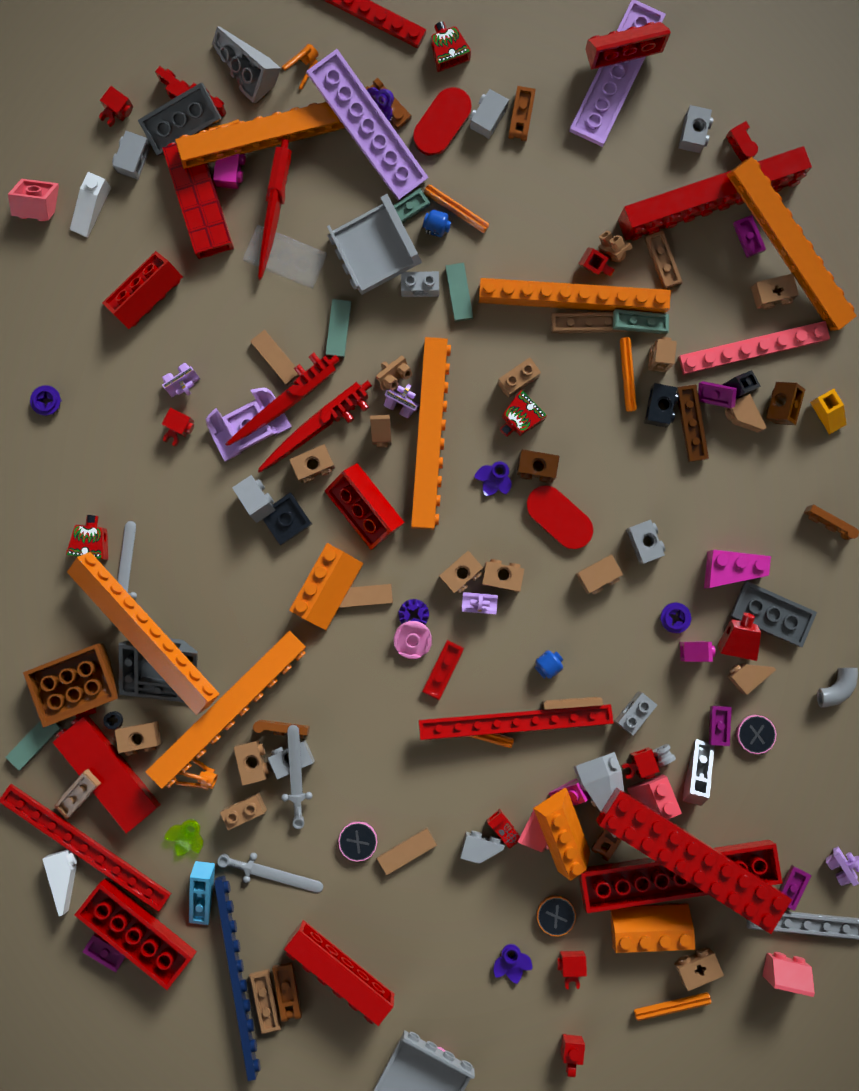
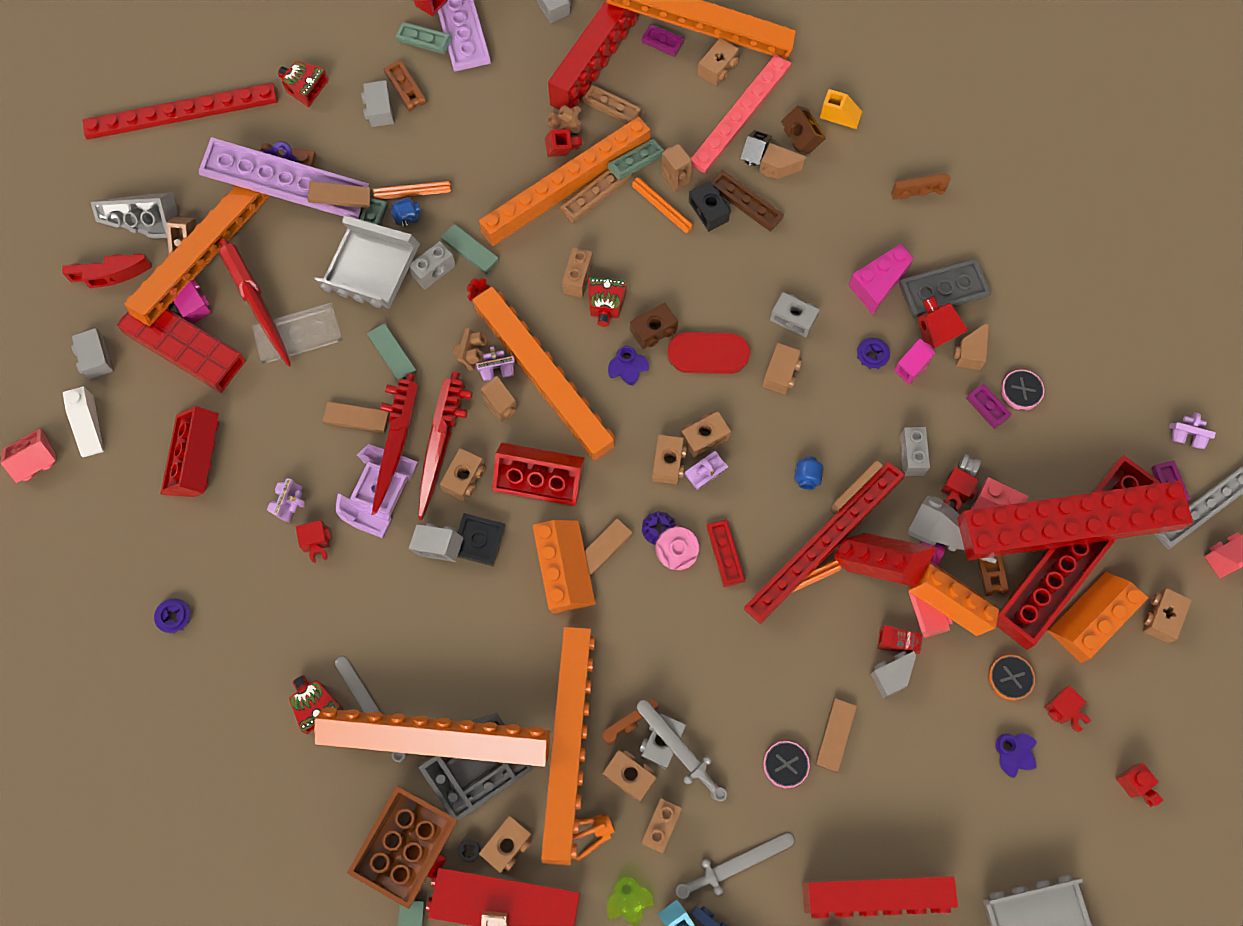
camera: 35 degrees left, 15 degrees down
(115, 105) = (46, 326): red brick -> none
(180, 116) = (116, 281): dark grey plate -> none
(262, 104) = (177, 230): none -> medium nougat slope
(306, 55) = (188, 170): orange plant -> none
(397, 170) = (339, 194): none -> medium nougat tile
(437, 330) = (477, 287): none -> red plant
(442, 121) = (344, 137): red tile -> none
(542, 771) = (885, 558): none -> red slope
(569, 83) = (424, 38): none -> sand green tile
(672, 1006) = (1178, 668): orange axle -> none
(699, 774) = (1011, 457): light grey slope -> none
(717, 394) = (745, 162): magenta plate -> none
(841, 690) = (1051, 301): light grey cylinder -> none

